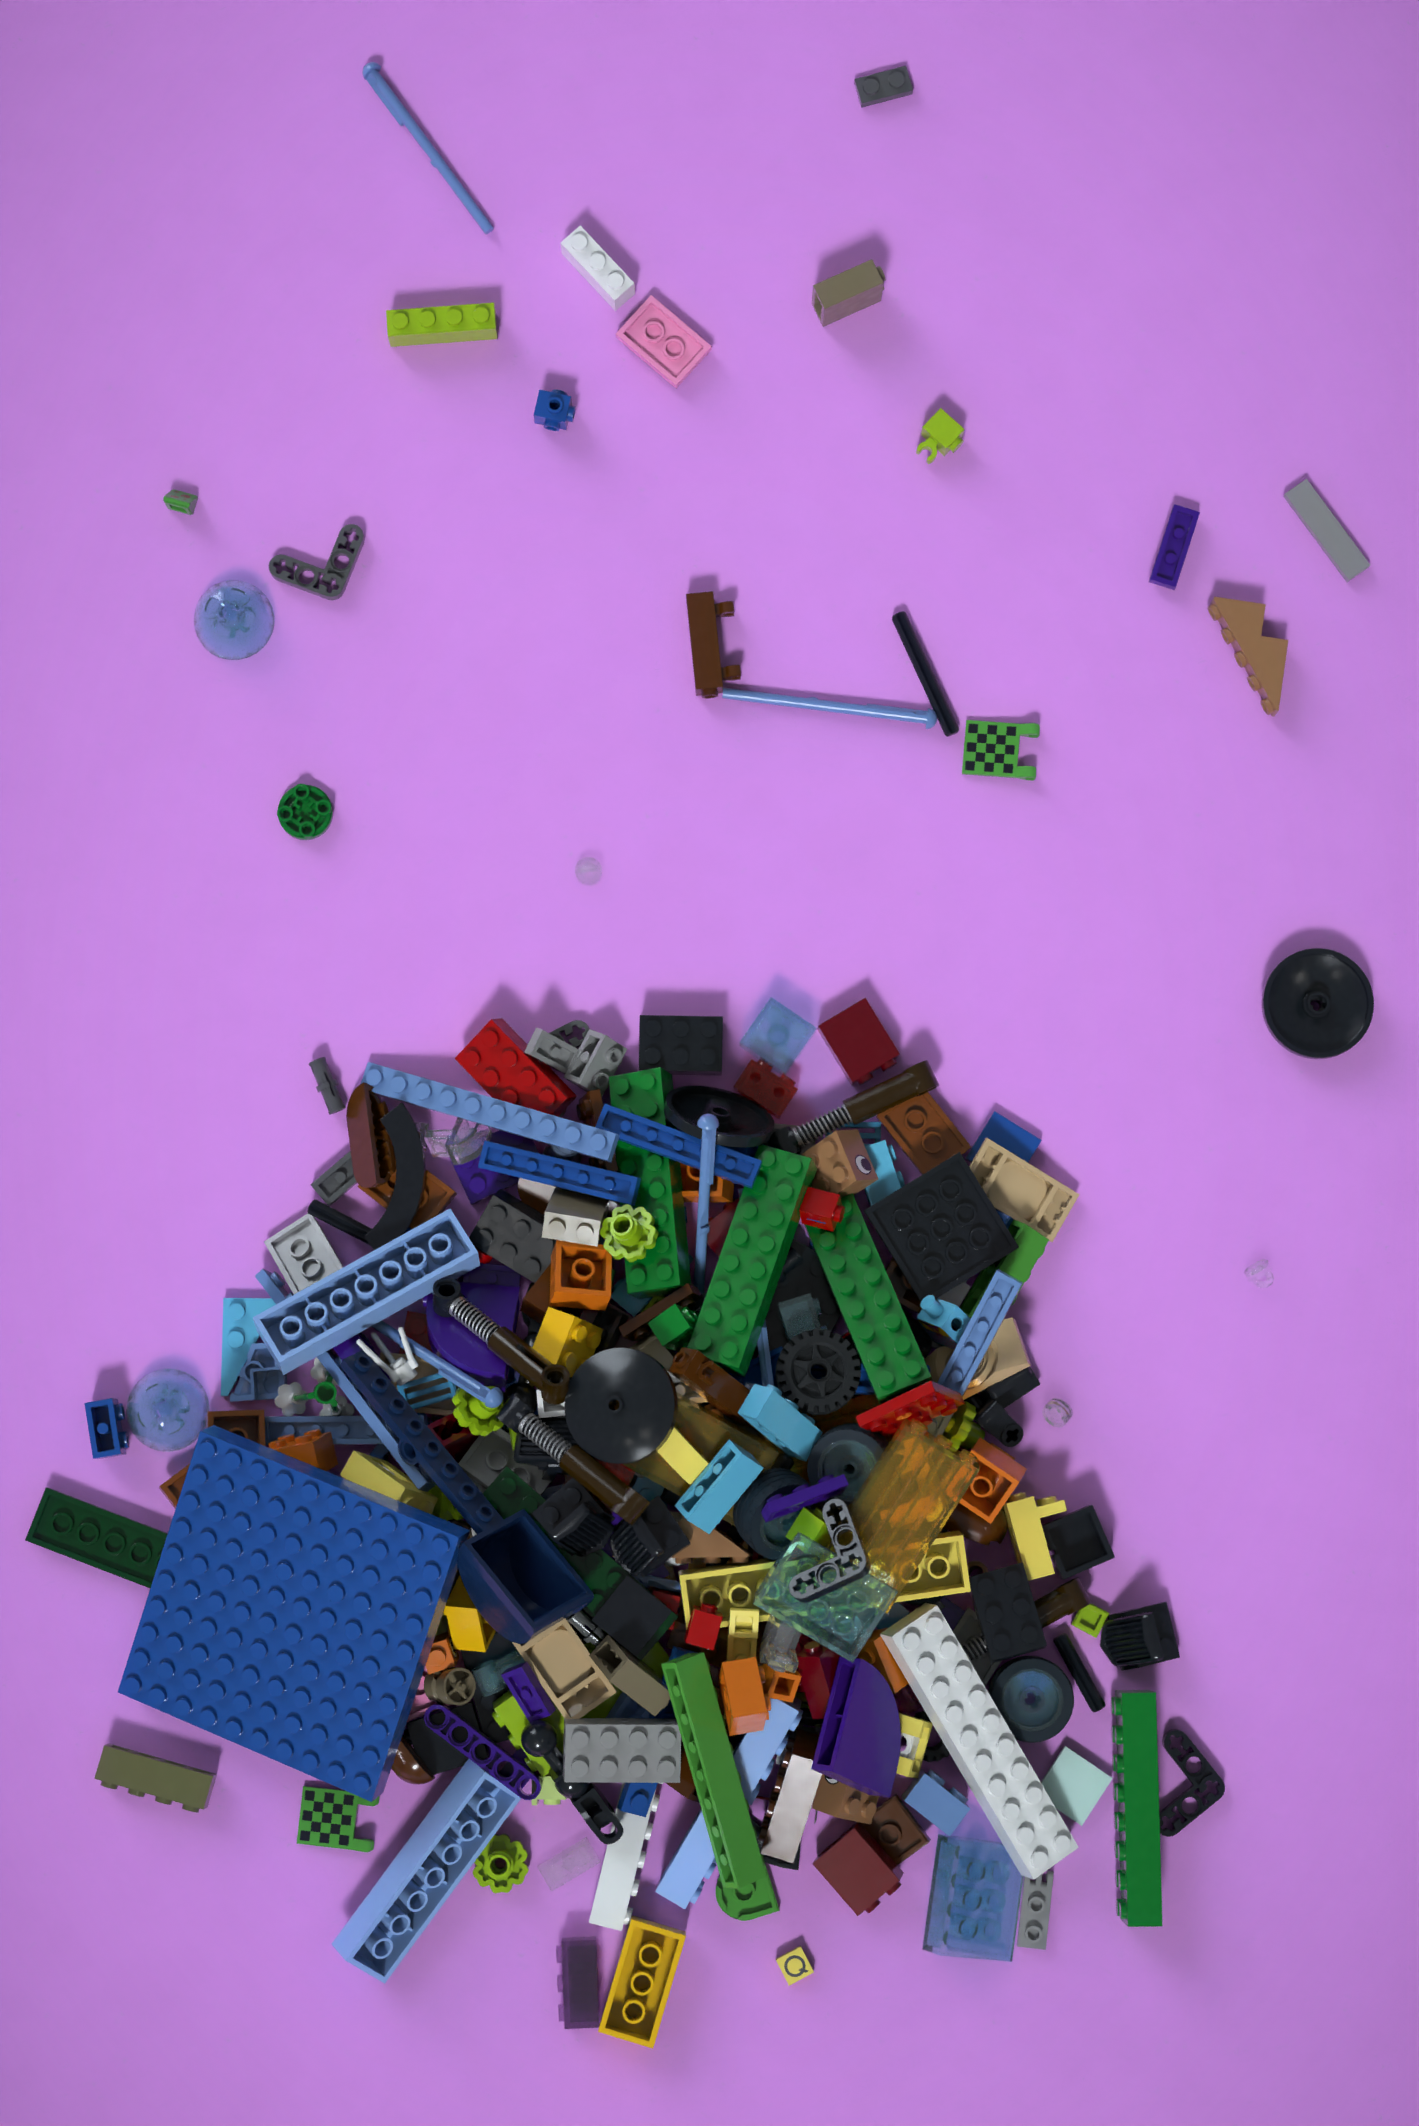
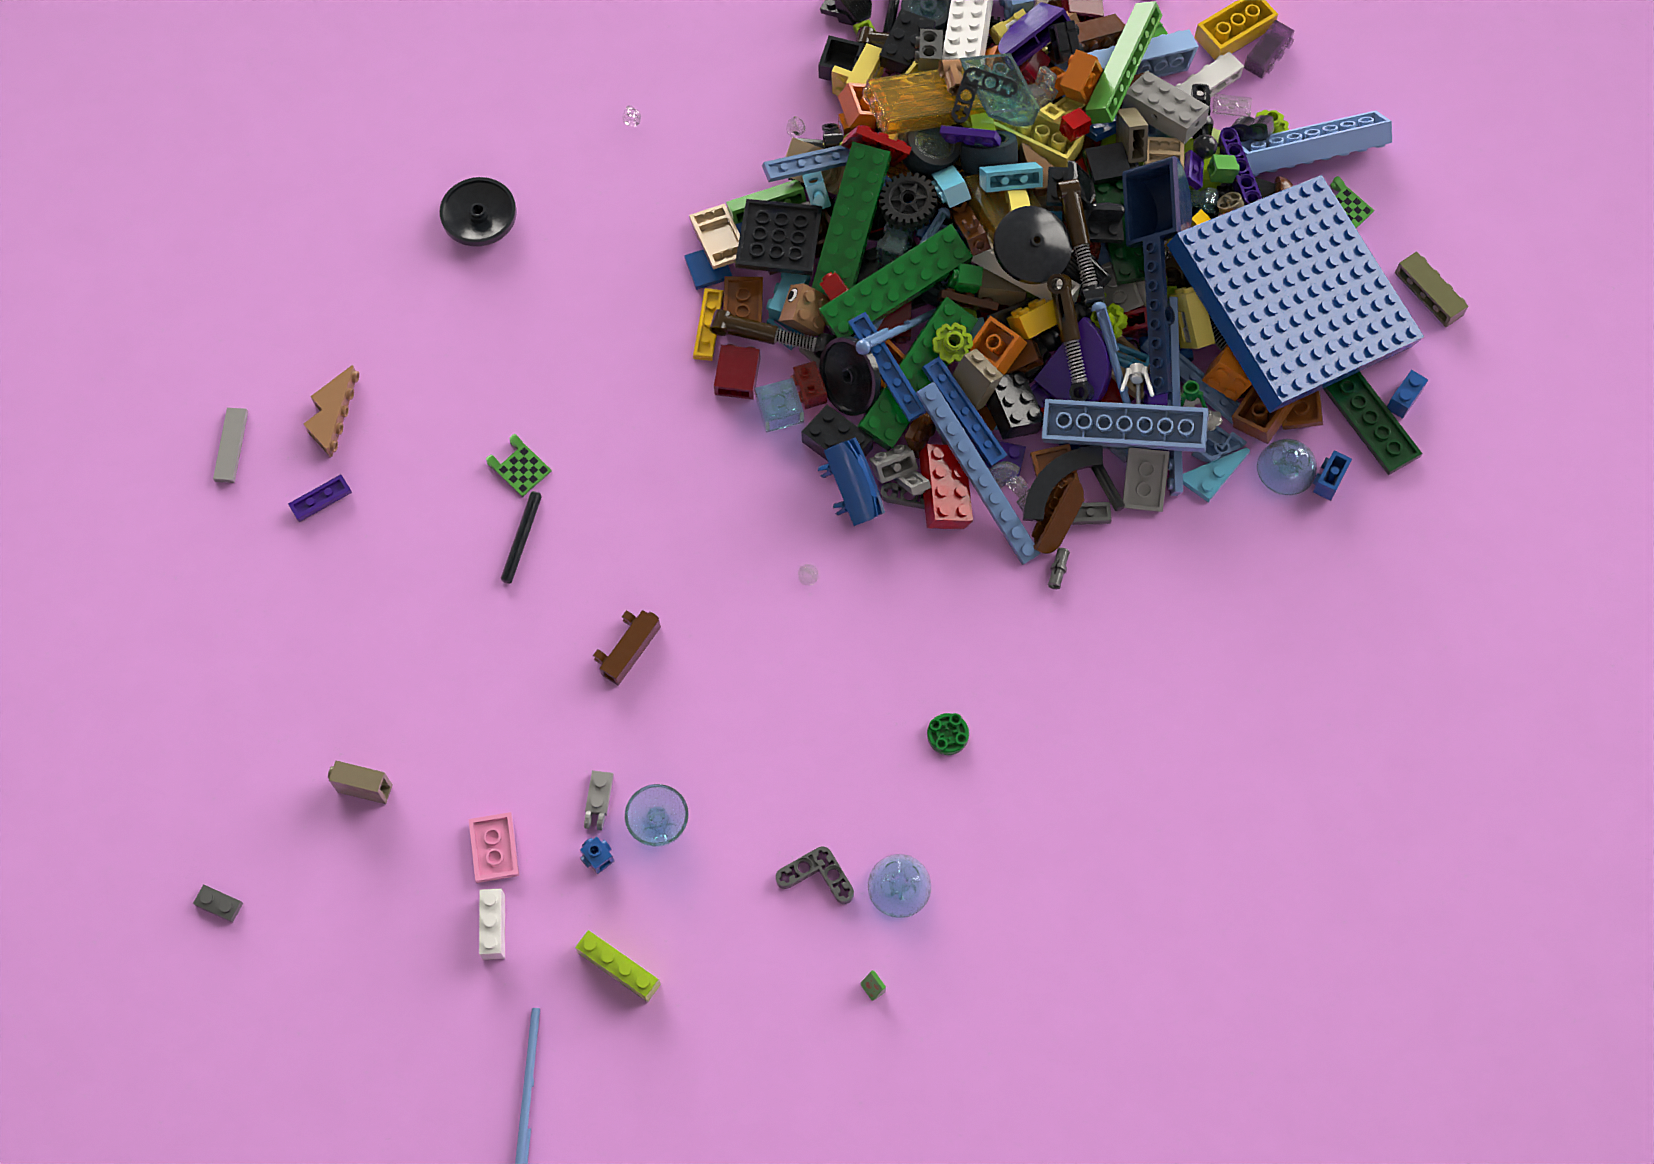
camera: 140 degrees left, 15 degrees down
(91, 1605) = (1407, 394): none -> blue brick
(495, 1723) = (1223, 168): none -> bright green brick
(510, 1830) = (1254, 128): none -> black brick
(513, 476) = (655, 804): none -> clear light blue piece
(604, 471) = (598, 797): none -> light grey hinge
(615, 994) = (854, 481): none -> blue piece
(798, 1731) = (1064, 40): none -> black brick
(870, 710) = (570, 540): medium blue bar -> none
(894, 1567) = (951, 72): none -> medium nougat piece
(941, 434) = (386, 660): lime brick -> none
(950, 1090) = (705, 339): none -> yellow tile
(954, 1604) = (930, 49): none -> dark grey brick

